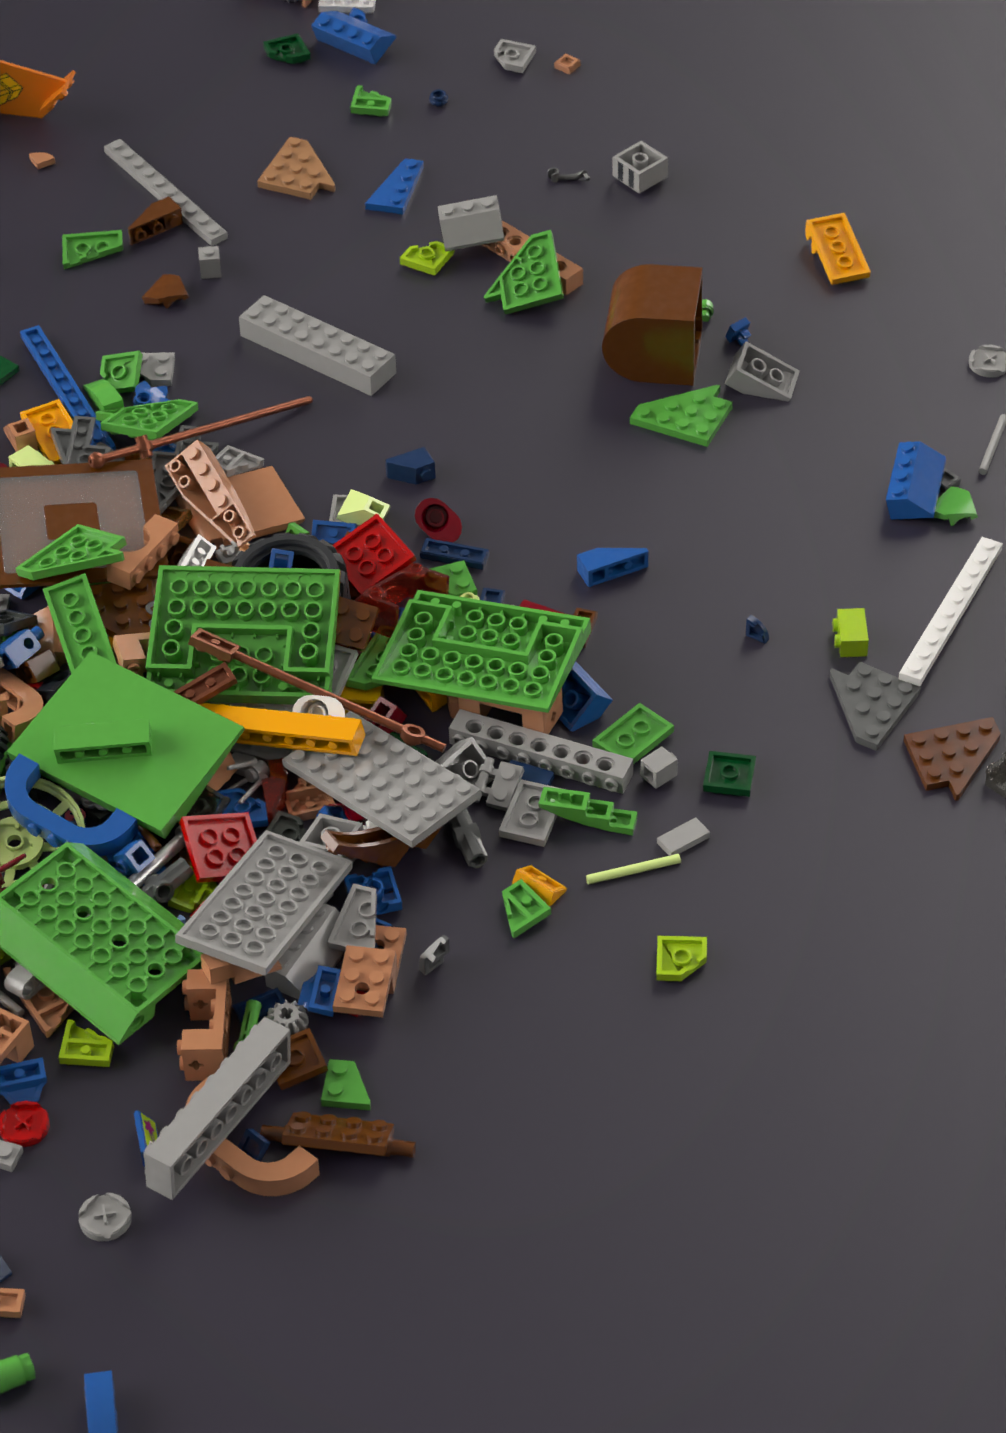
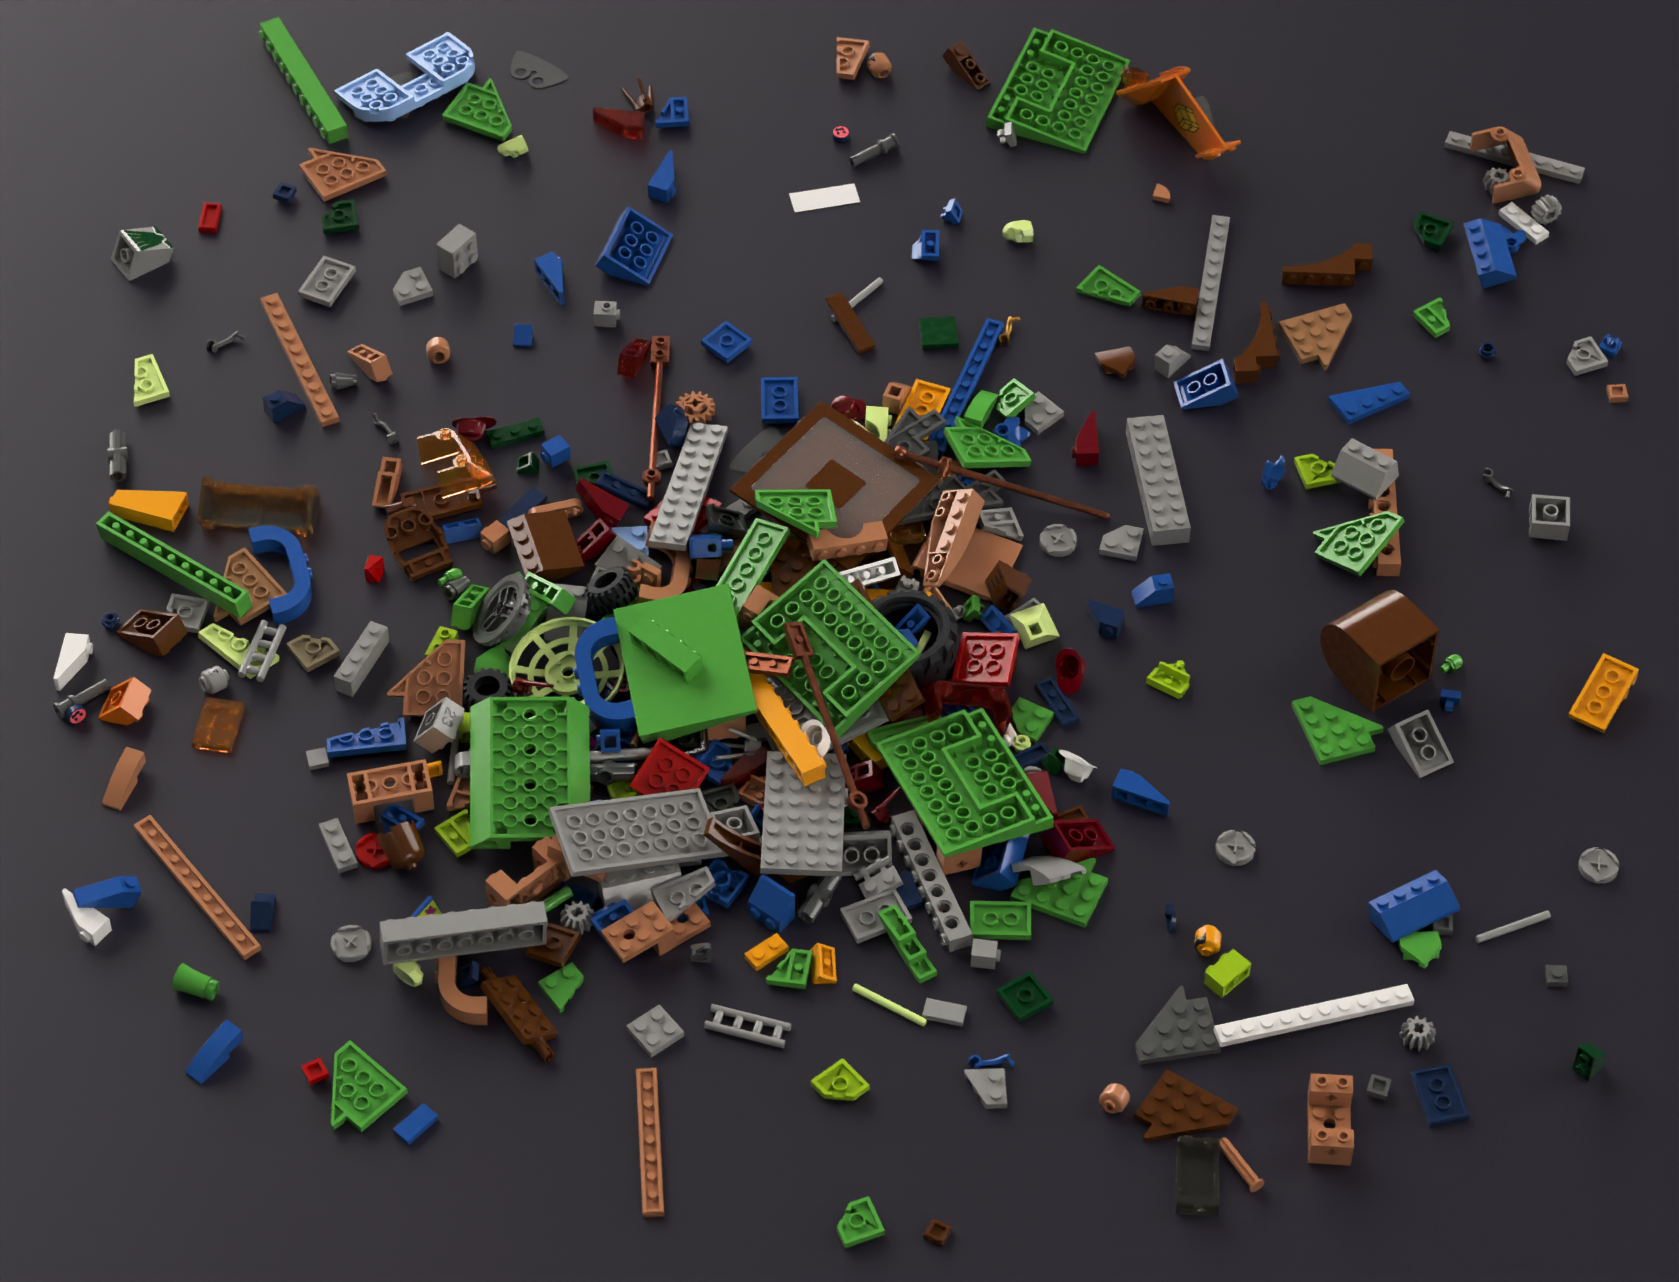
camera: 45 degrees right, 5 degrees up
(52, 336) = (1005, 337): none -> pearl gold piece
(55, 1093) = (402, 846): none -> reddish brown cylinder
(197, 1193) = (409, 973): none -> yellowish green rock
(219, 1347) = (315, 1071): none -> red plate
(227, 361) = (1086, 444): none -> dark red slope
(255, 119) = (1334, 271): none -> reddish brown arch
(265, 257) = (1206, 387): none -> blue slope
(272, 205) = (1261, 351): none -> reddish brown arch
(280, 1323) = (361, 1088): none -> bright green wing
(294, 443) = (1058, 540): none -> light grey tile
(309, 496) = (1006, 586): none -> reddish brown slope
(348, 408) = (1122, 542): none -> light grey plate
(369, 1308) = (415, 1124): none -> blue tile
(401, 285) = (1273, 473): none -> blue plate
(422, 420) = (1154, 591): none -> blue slope
(429, 730) = (881, 812): none -> dark red plant
(442, 869) = (772, 904): none -> blue slope
(473, 1051) = (655, 1030): none -> light grey plate
(480, 914) = (766, 952): none -> light orange plate
(513, 593) = (1053, 761): none -> dark green slope
(518, 471) = (1170, 679): none -> lime slope
(520, 36) = (1610, 346): none -> blue tile
(537, 992) = (755, 1034): none -> light grey bar
(540, 584) = (1076, 767): none -> white piece
(590, 1140) = (649, 1142): none -> nougat tile
(612, 635) = (1077, 839): none -> dark red slope
(628, 663) = (1048, 869): none -> light grey slope
(651, 678) = (1065, 899): none -> bright green wing
(730, 547) = (1235, 848): none -> light grey tile
(763, 848) = (976, 1059): none -> blue piece
(793, 860) = (989, 1086): none -> light grey wing
(806, 622) = (1207, 940): none -> light orange head
(842, 1045) = (859, 1223): none -> bright green plate
(899, 785) = (1114, 1097): none -> nougat head
(907, 999) = (937, 1232): none -> reddish brown tile

